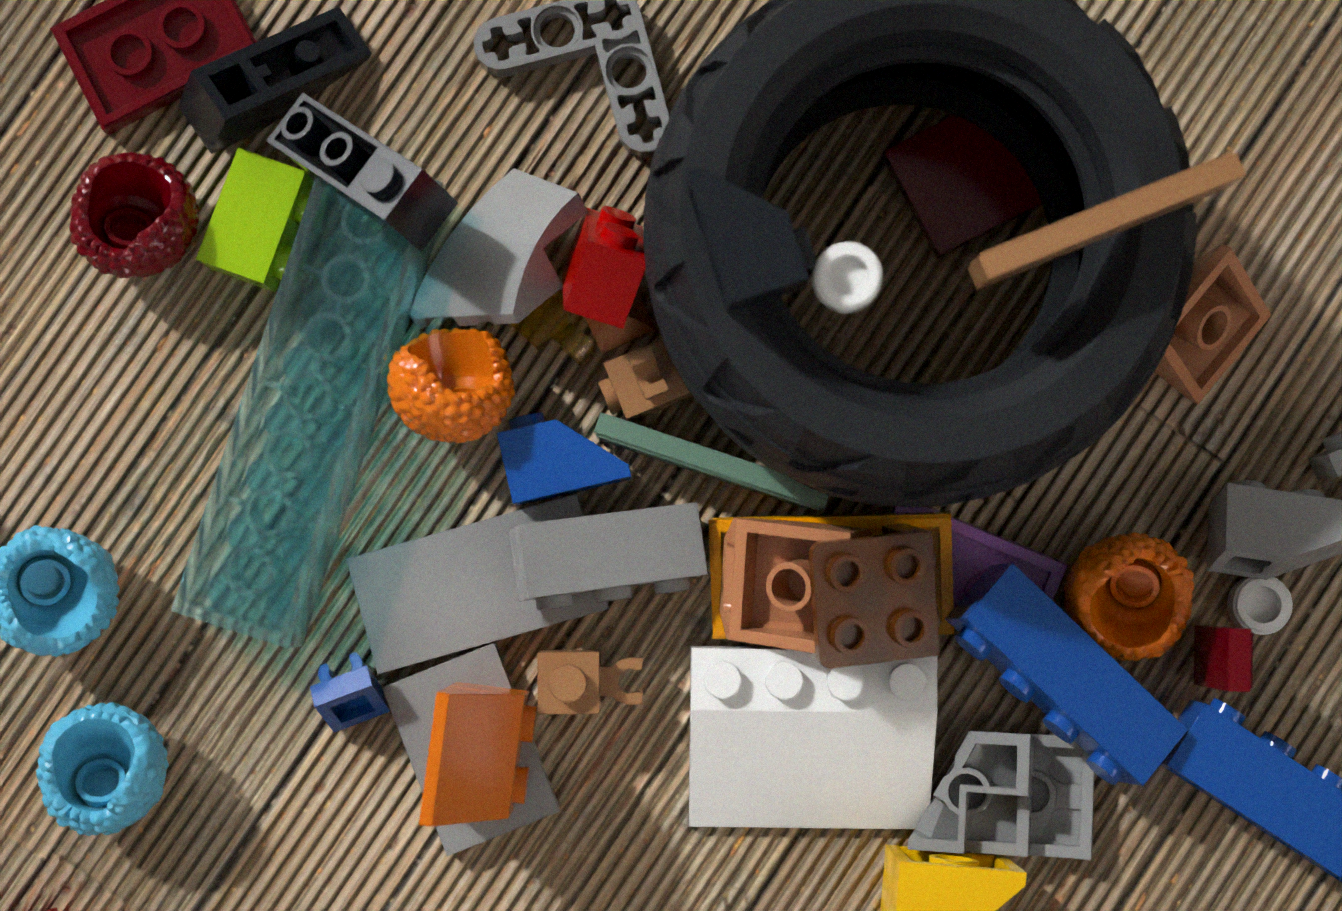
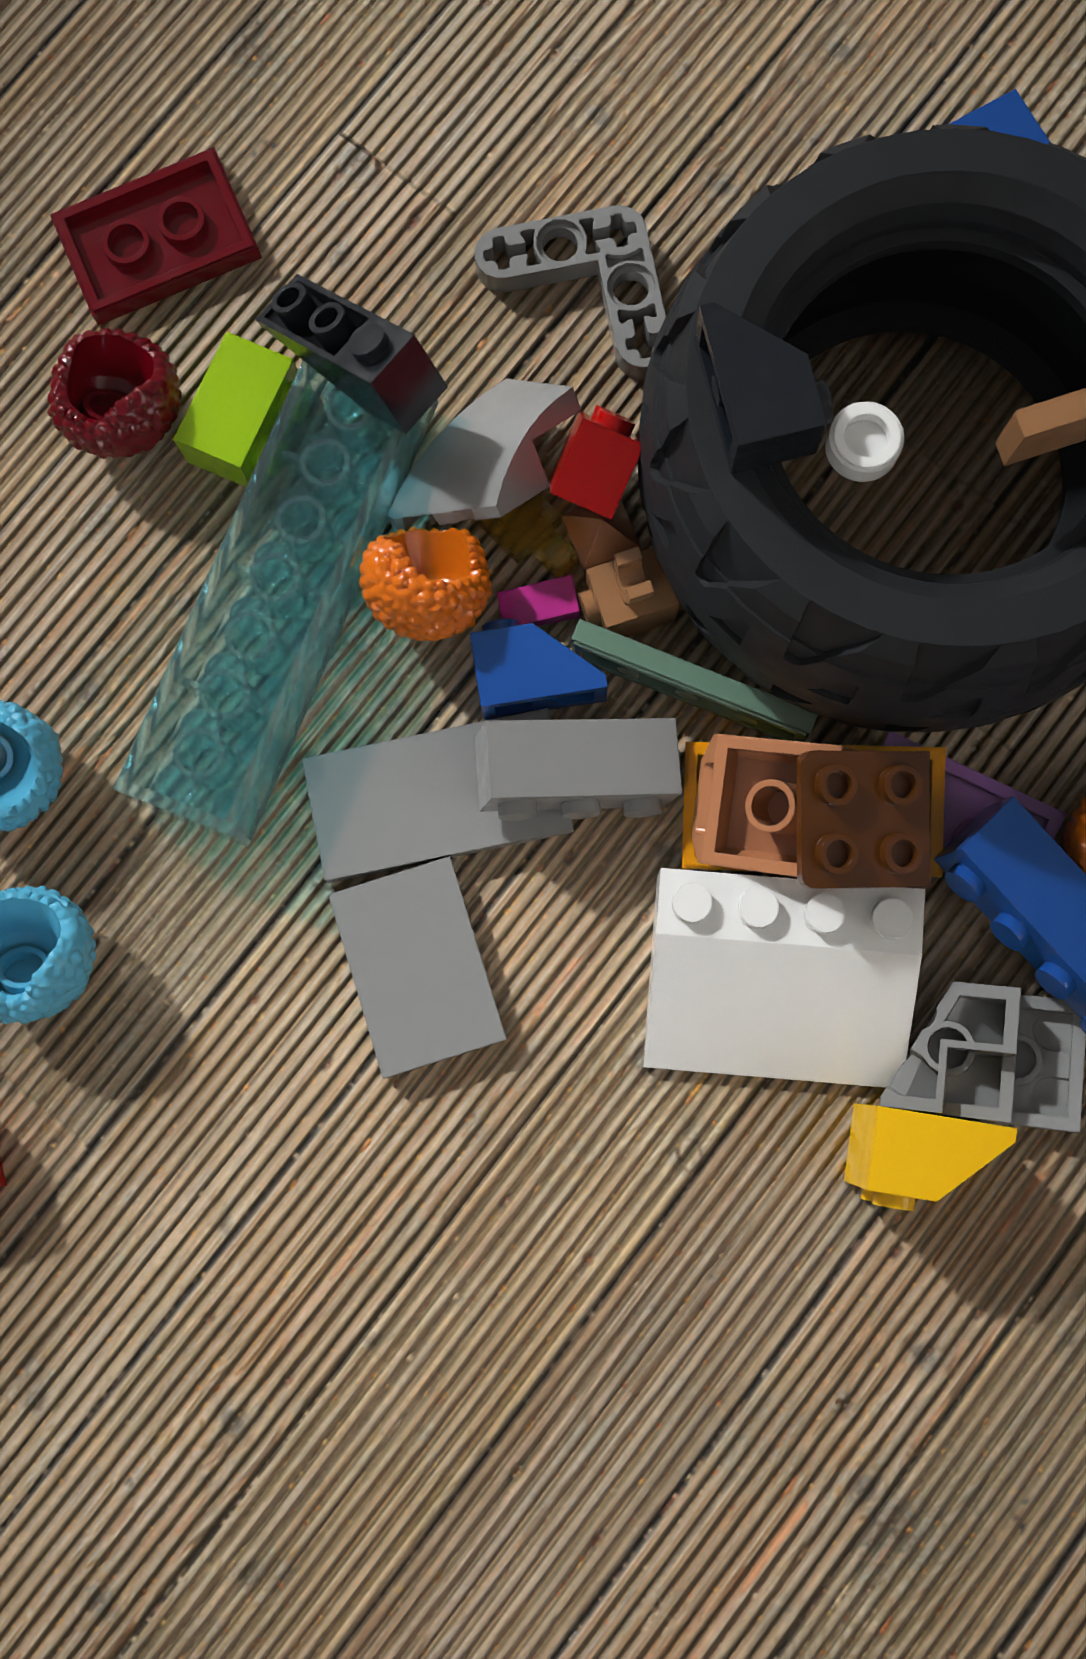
camera: 15 degrees right, 5 degrees down
(264, 80) = (234, 277): black slope -> none
(348, 697) = (292, 900): blue tile -> none
(476, 754) = (423, 956): orange slope -> none
(561, 389) = (541, 602): none -> dark pink piece
(576, 681) = (532, 900): medium nougat brick -> none
(959, 183) = (957, 414): dark red tile -> none

